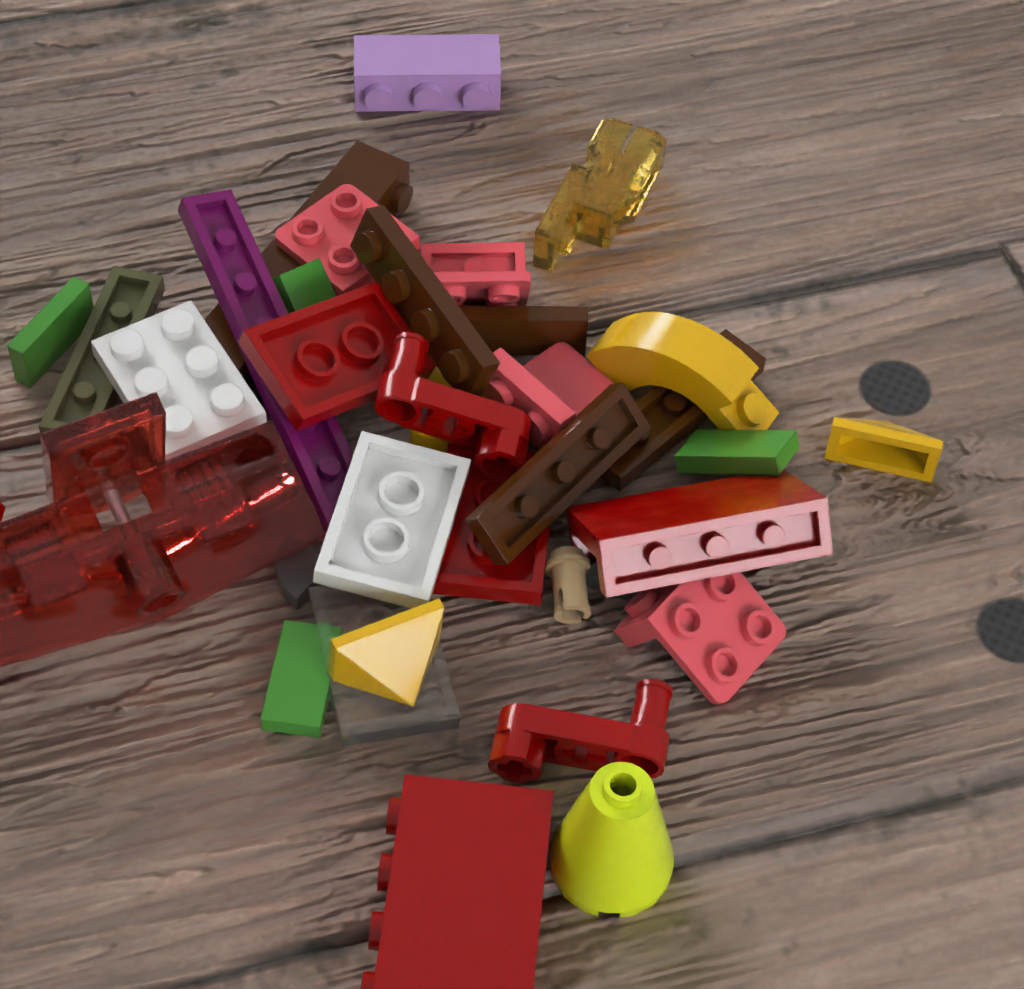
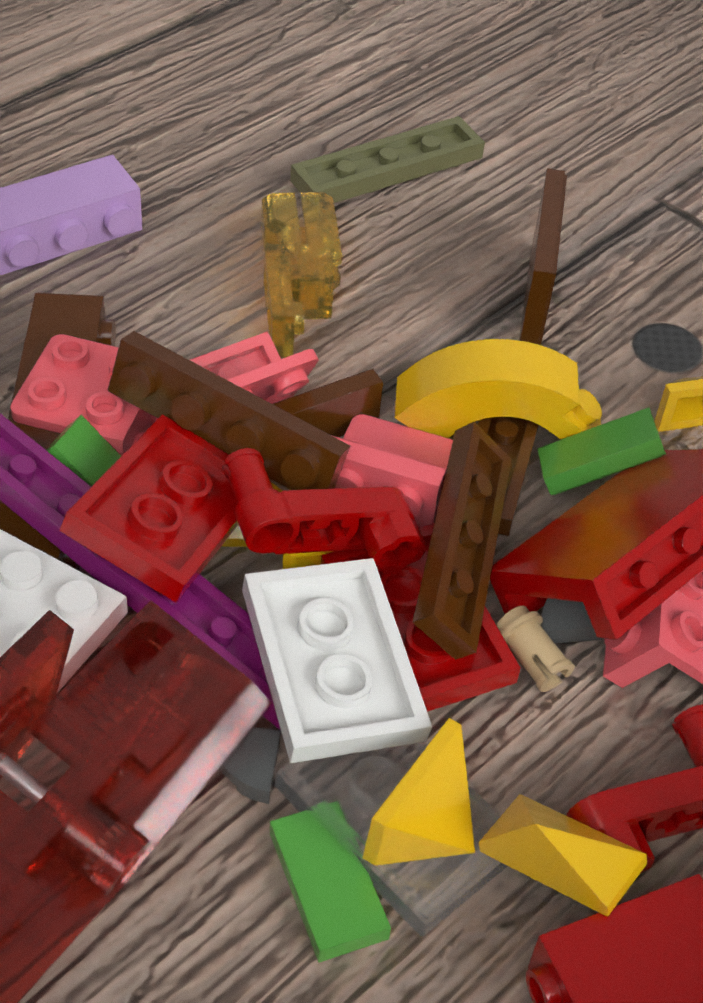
camera: 30 degrees left, 5 degrees down
(467, 732) = (563, 854): none -> yellow slope
(756, 119) = (389, 160): none -> olive plate
(808, 266) = (543, 257): none -> reddish brown tile

